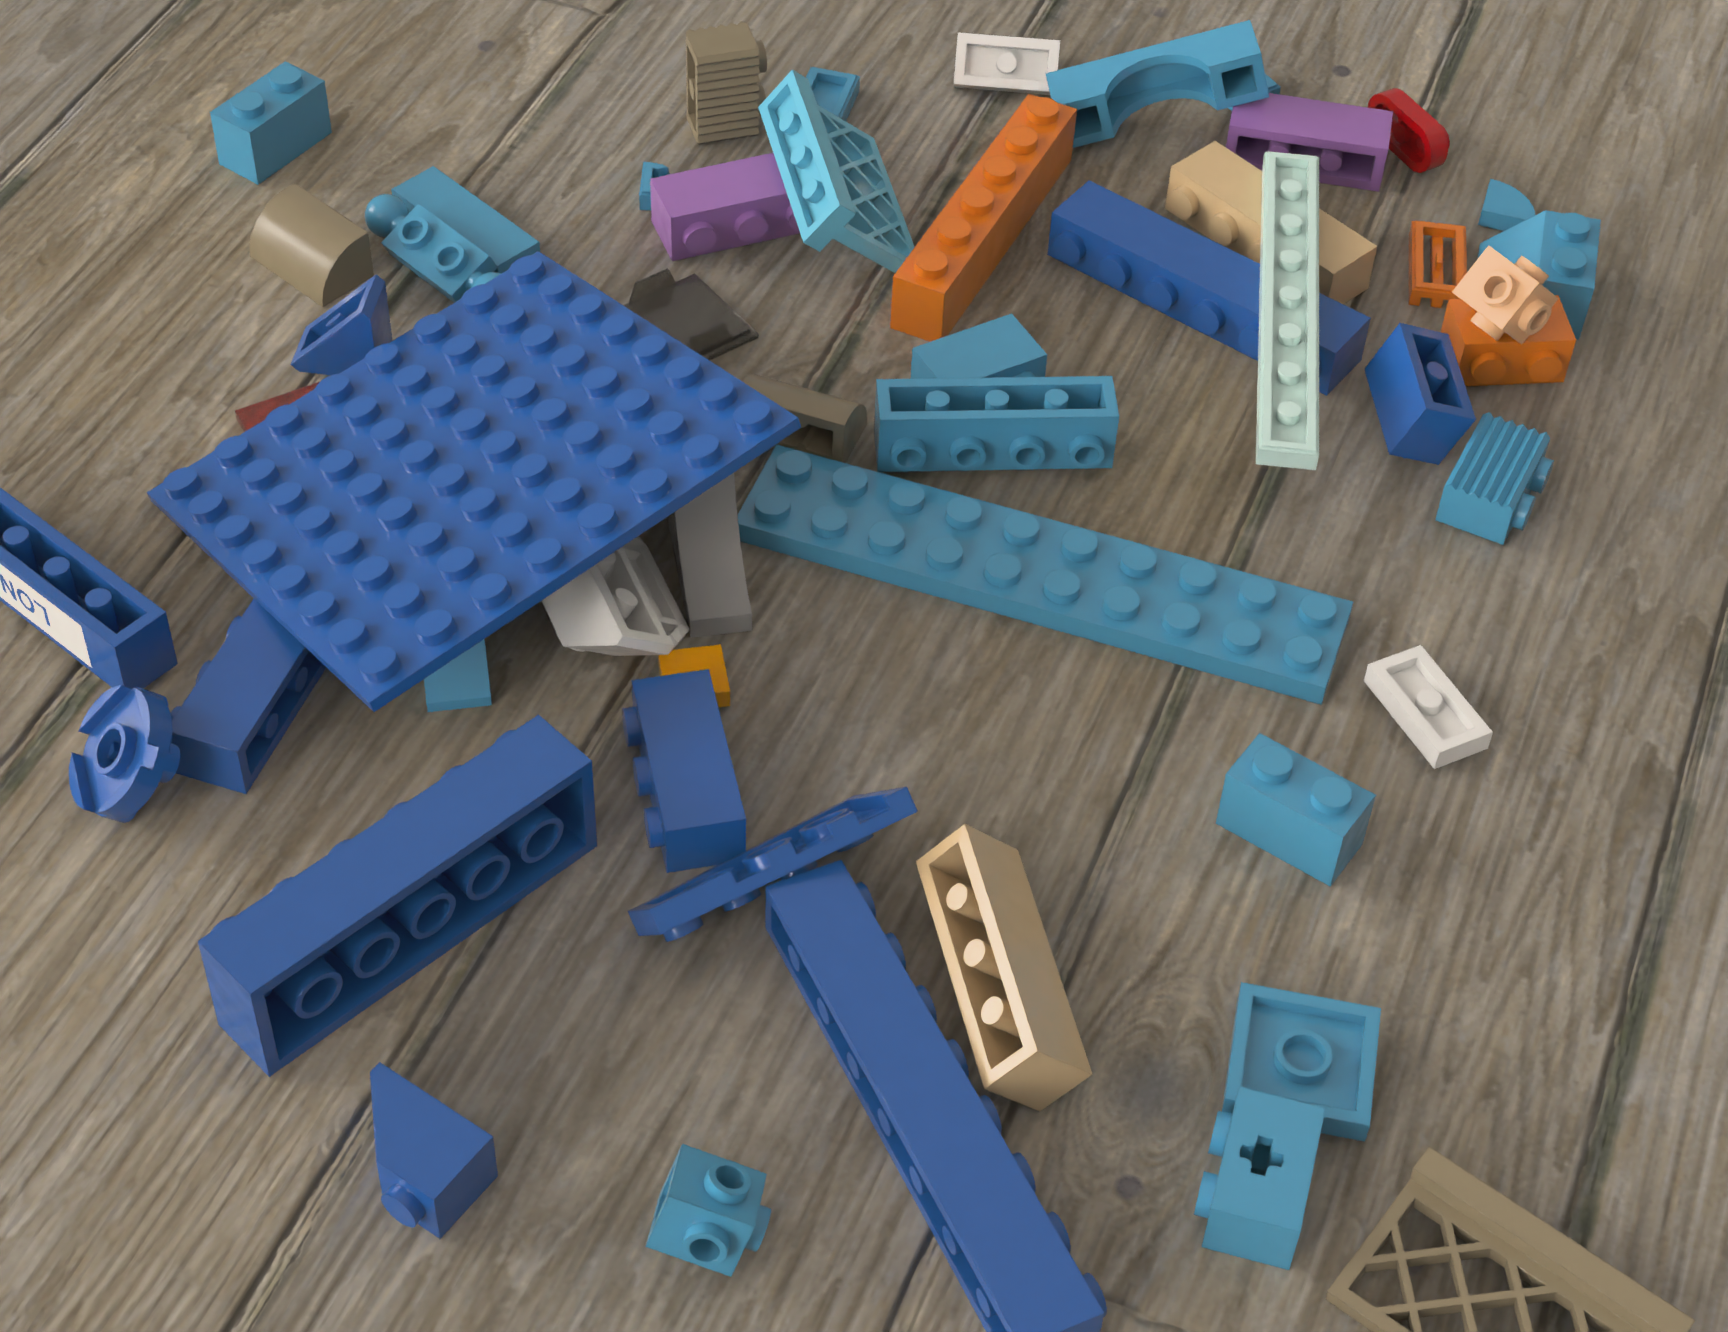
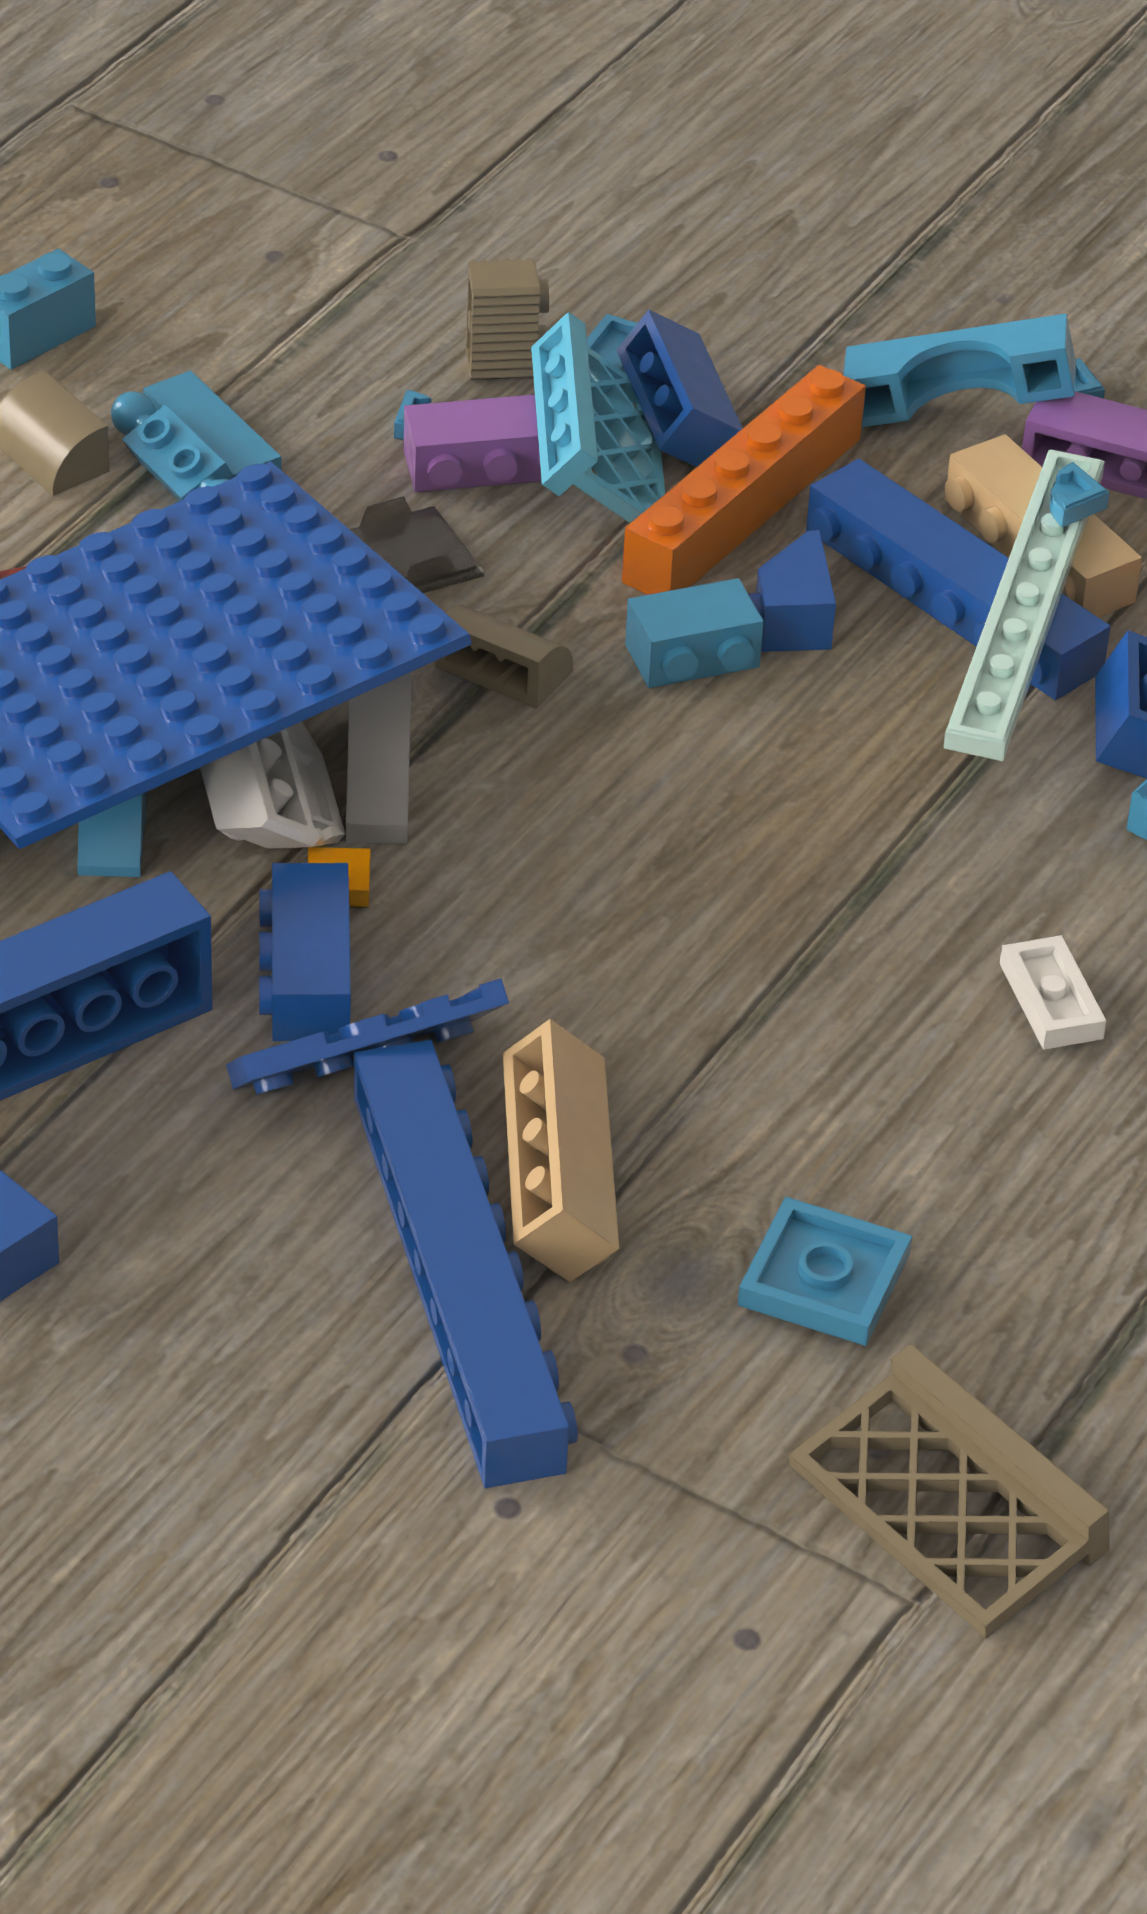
camera: 10 degrees right, 5 degrees down
(346, 331) = (69, 517): blue slope -> none
(709, 1211) = (238, 1304): dark azure brick -> none
(902, 134) = (678, 388): none -> blue brick
(995, 423) = (692, 680): dark azure brick -> none
(1005, 63) = (811, 331): white panel -> none
(1047, 573) = (712, 827): dark azure plate -> none
(1068, 322) = (796, 597): none -> blue slope
(1262, 1179) = (754, 1354): dark azure brick -> none
(1295, 809) = (885, 1060): dark azure brick -> none
(1307, 194) = (1076, 495): none -> dark azure tile

